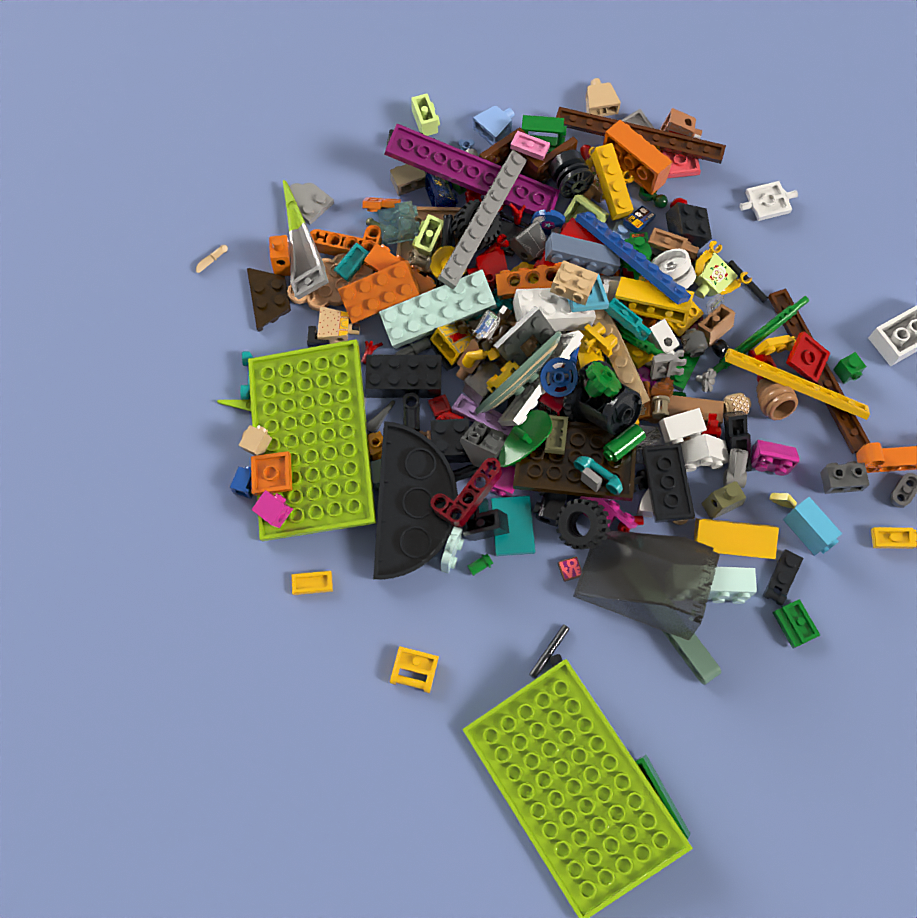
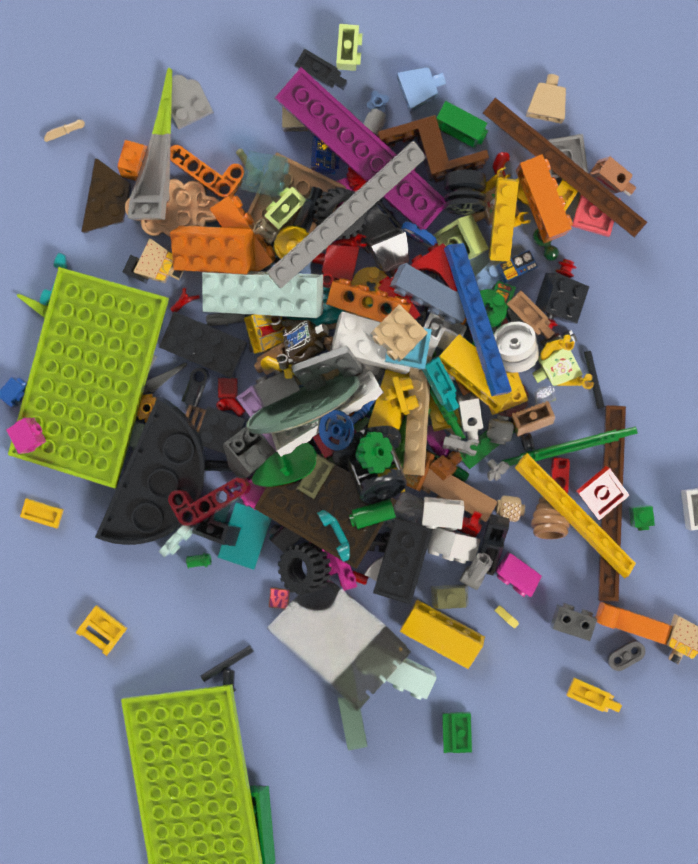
camera: 25 degrees right, 20 degrees up
(255, 440) = (34, 359): tan brick -> none
(271, 473) = (38, 399): orange plate -> none
(351, 262) = (200, 199): teal plate -> none
(374, 204) = (253, 134): orange plate -> none
(507, 371) = (286, 399): yellow plate -> none
(517, 213) = (390, 214): red bar -> none
(530, 145) = (433, 146): bright pink plate -> none
(591, 479) = (325, 537): light grey tile -> none
(663, 401) = (436, 483): dark tan bush -> none
(768, 200) = (664, 298): white plate -> none
(775, 344) = (581, 467): yellow hinge -> none
(783, 576) = (468, 686): black plate -> none
(813, 527) = (516, 657): medium azure brick -> none

